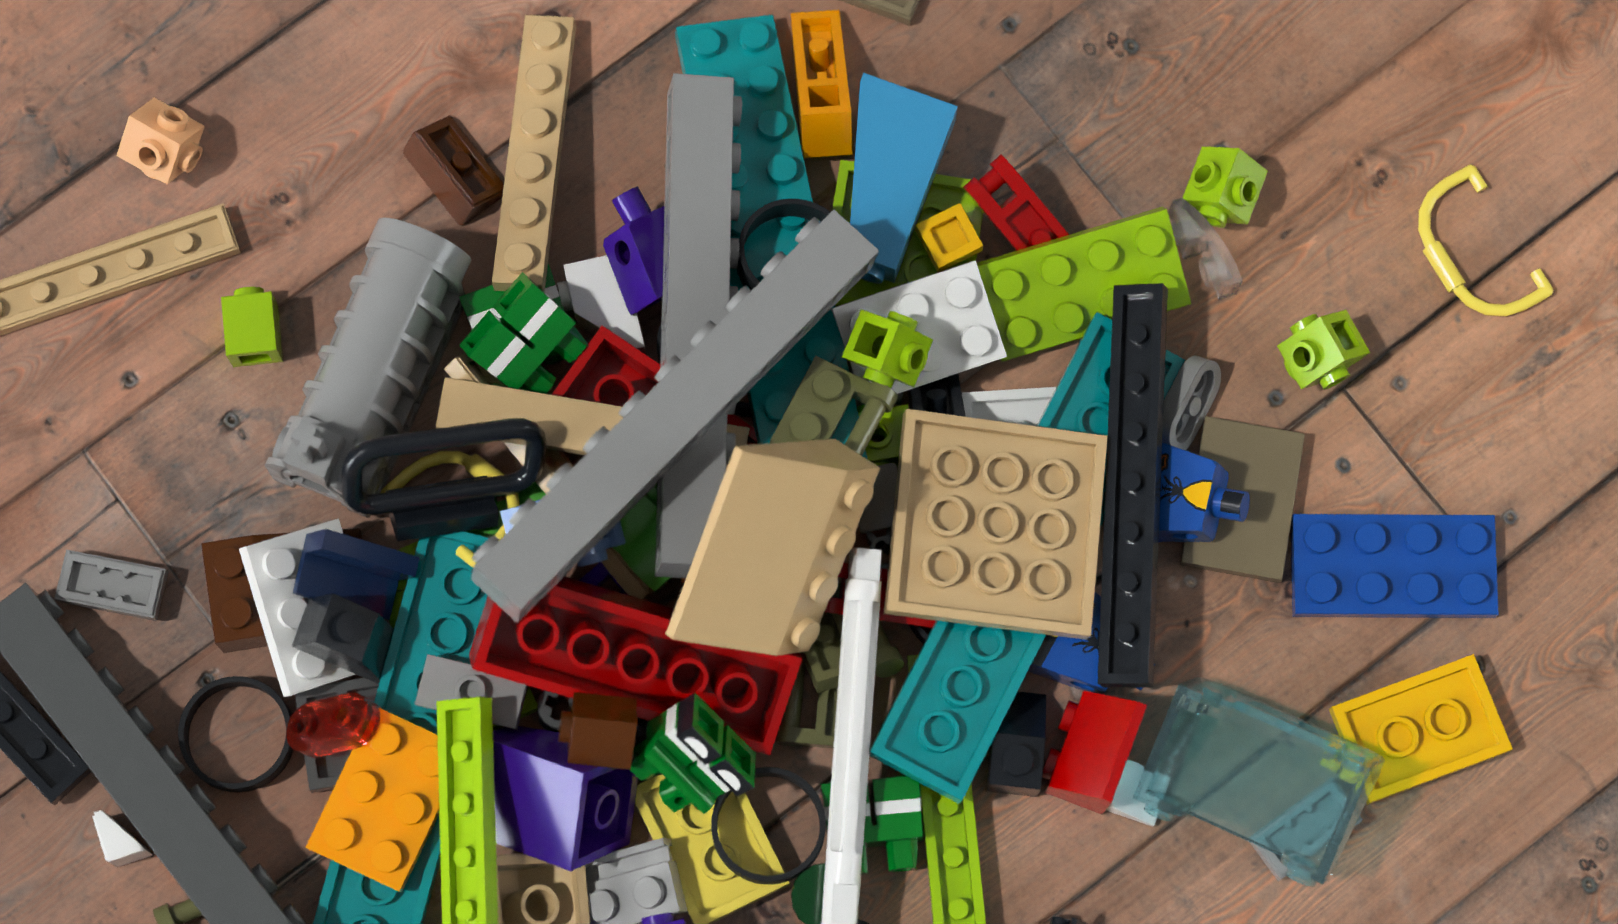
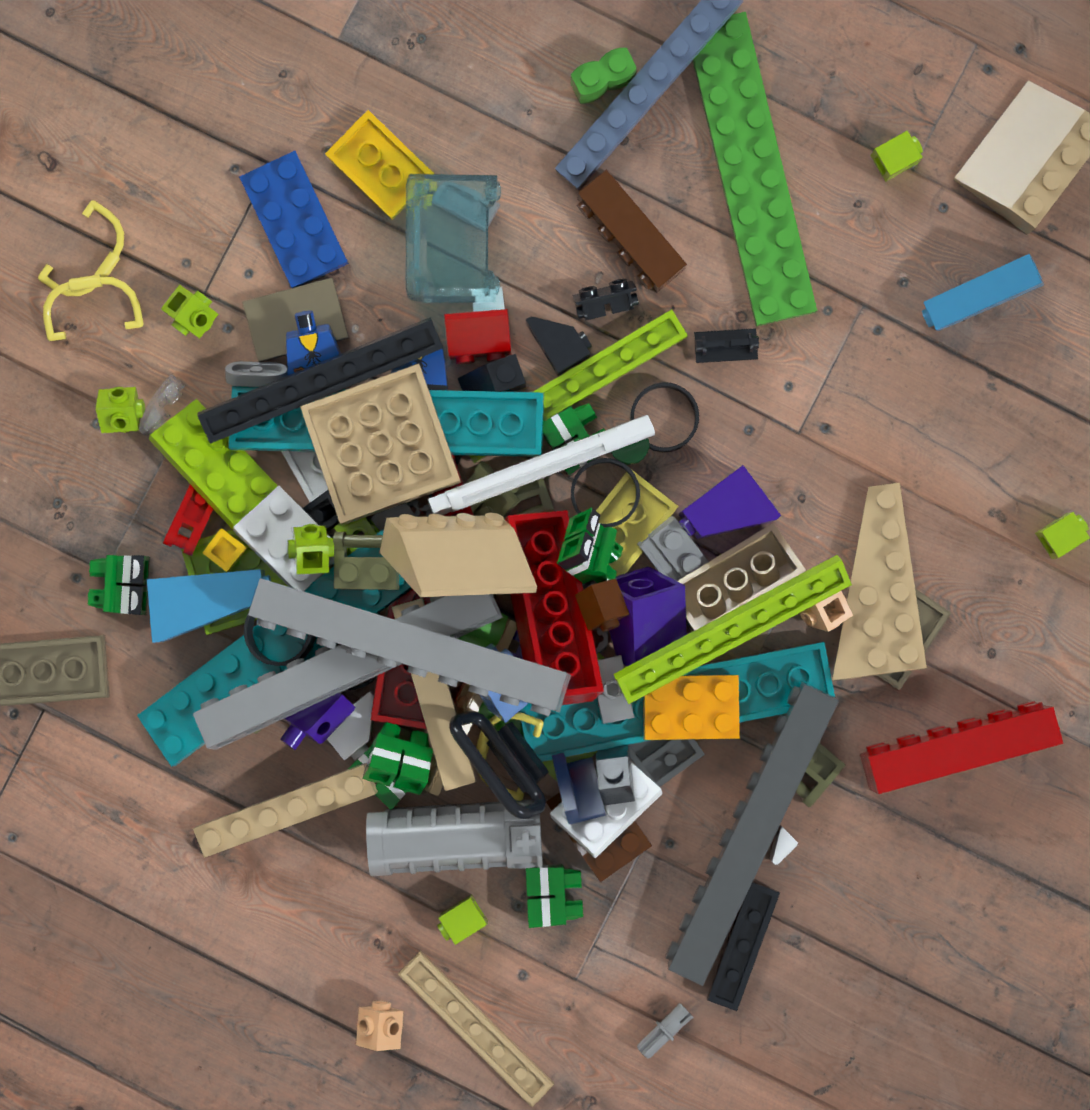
camera: 110 degrees left, 10 degrees up
(111, 585) = (644, 923): light grey plate -> none
(189, 712) = (724, 817): black tyre -> none
(222, 463) = (552, 910): none -> green hips
(333, 725) = (668, 763): clear red plate -> none
(453, 169) = (314, 853): reddish brown slope -> none
(821, 84) = (165, 667): light orange slope -> none
(958, 60) = (120, 570): none -> green hips
(1025, 867) = (559, 343): none -> black slope
(1431, 228) = (86, 283): none -> light yellow piece

